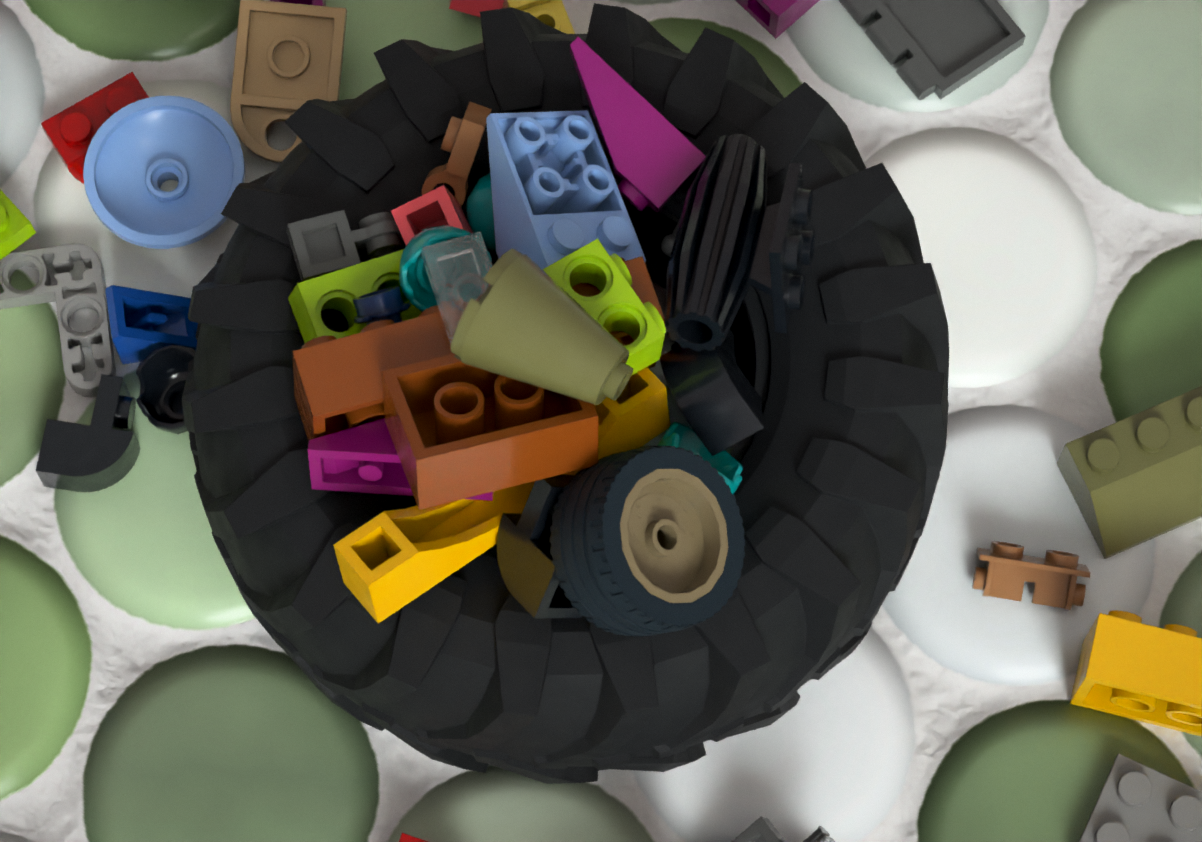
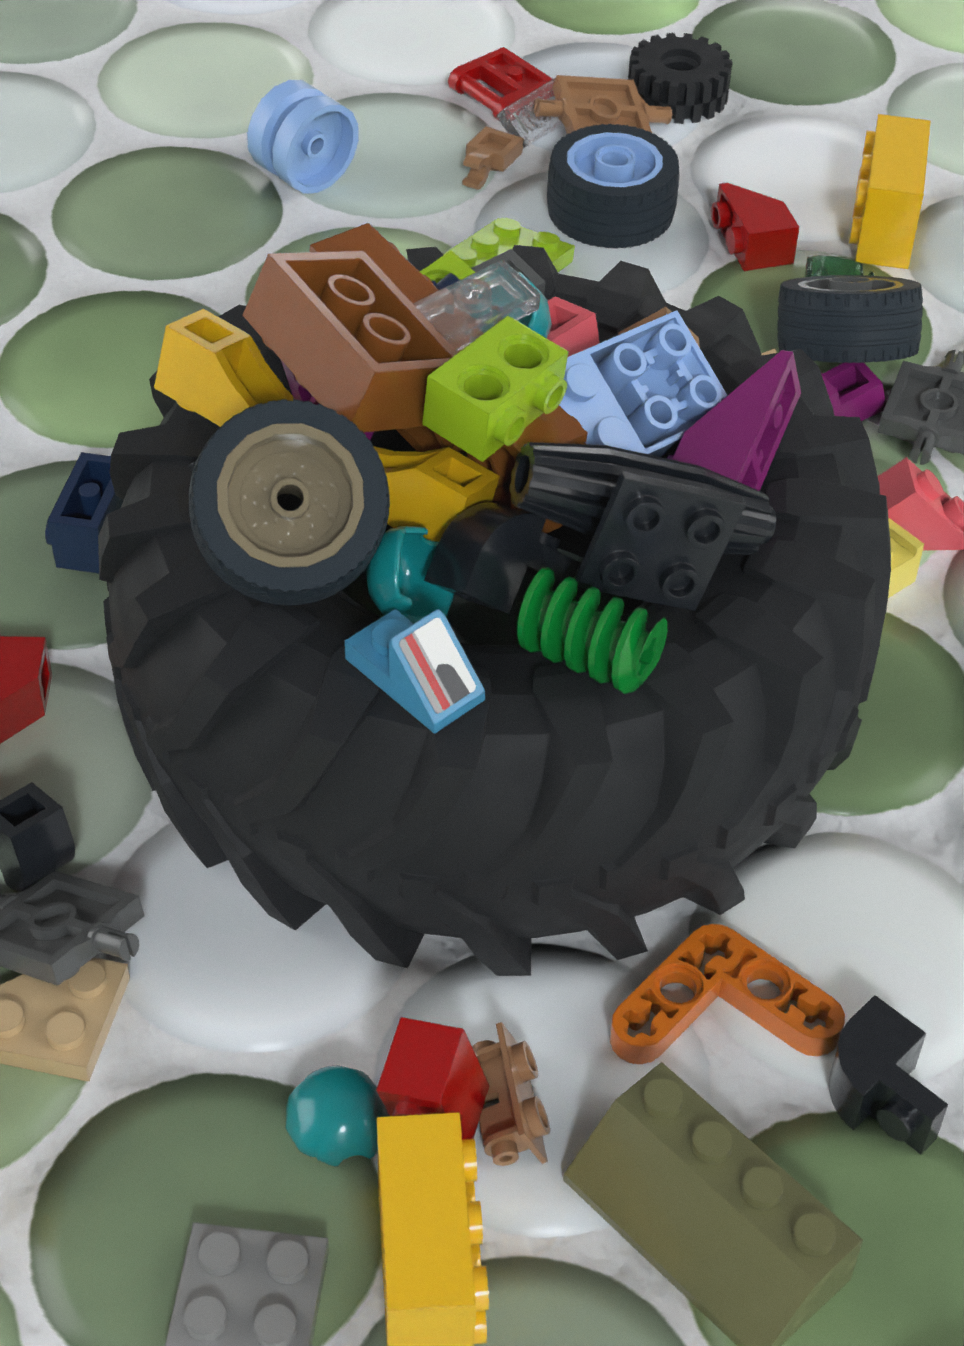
camera: 70 degrees right, 25 degrees down
(223, 748) = (81, 513): none -> dark blue brick
(539, 335) = (438, 292): olive cone -> none
(816, 497) = (418, 666): none -> dark azure slope
(836, 340) = (589, 636): none -> green piece
(966, 358) = (729, 981): none -> orange beam
(1004, 715) = (335, 1114): none -> teal hair
(1039, 628) = (433, 1073): none -> red brick
(1093, 291) = (873, 1077): none -> black brick

